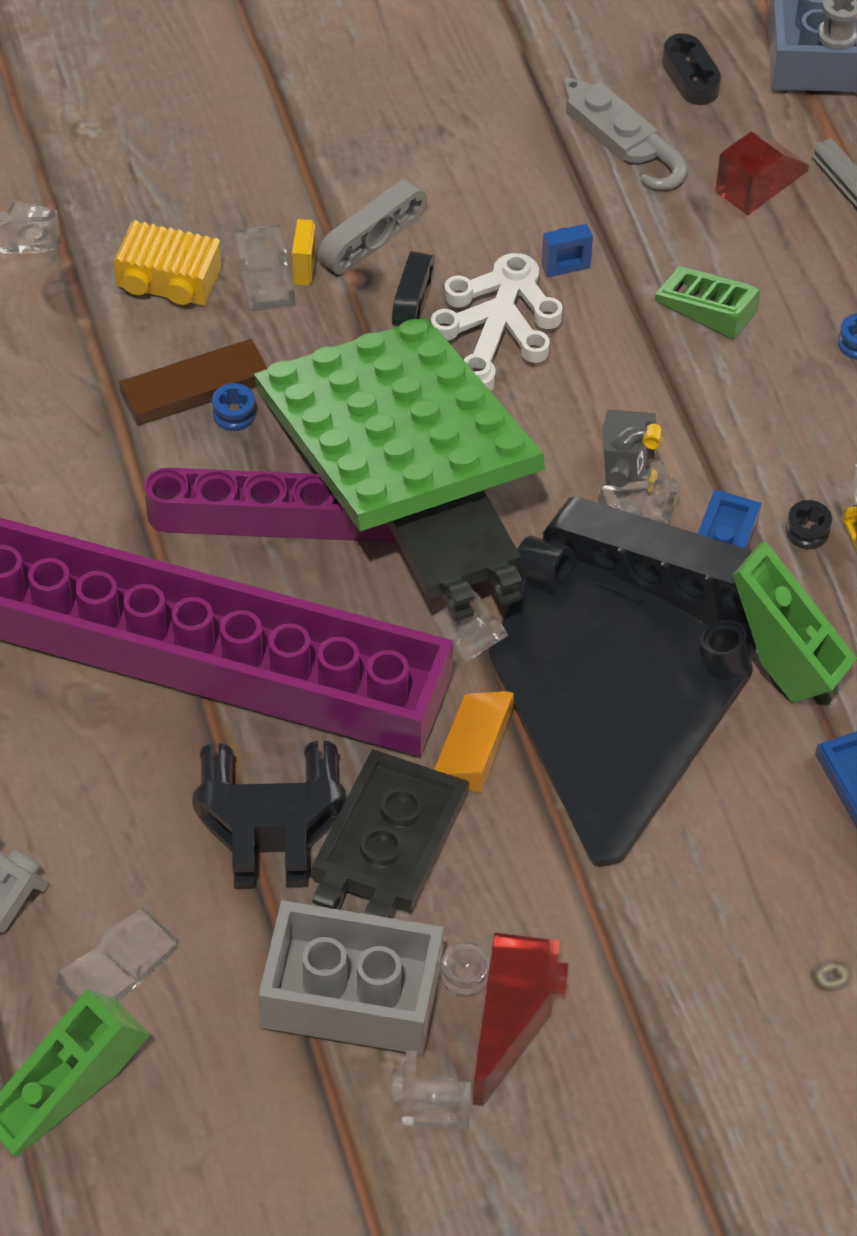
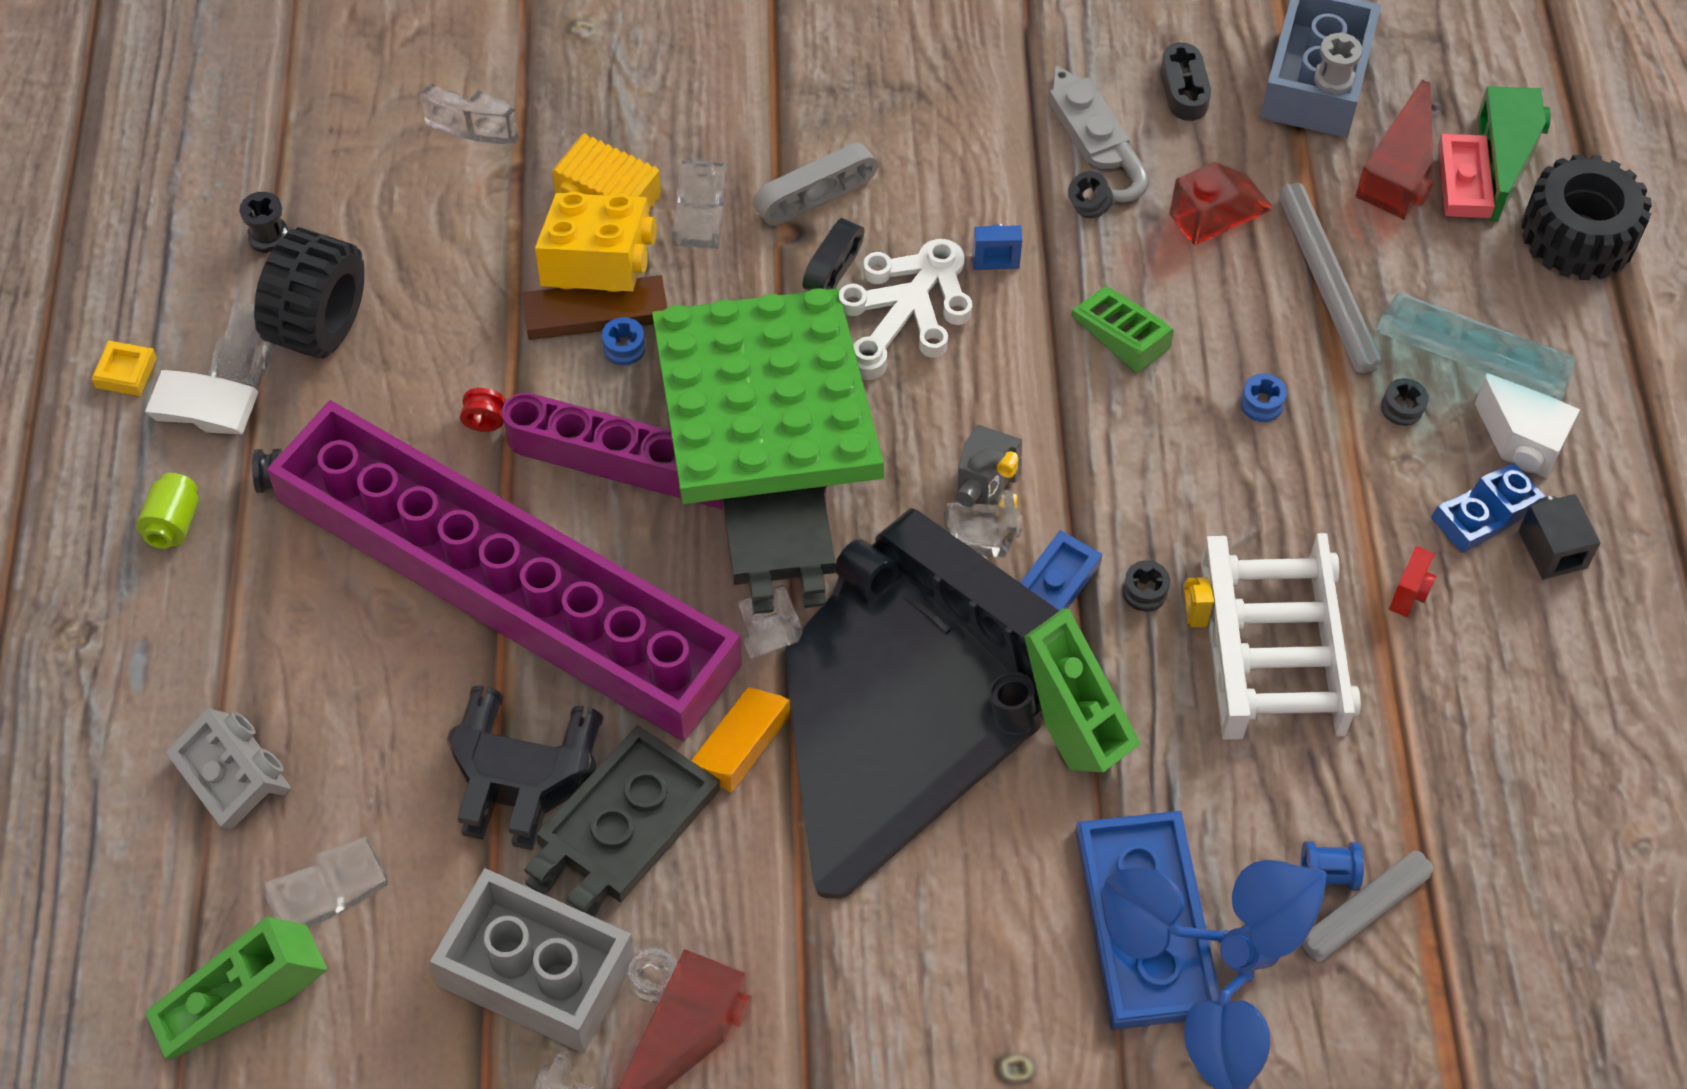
camera: 15 degrees right, 5 degrees up
(119, 495) = (482, 409): none -> red bush
(181, 317) = (595, 242): none -> yellow brick
(304, 252) = (739, 197): yellow tile -> none
(642, 199) = (1083, 182): none -> black bush

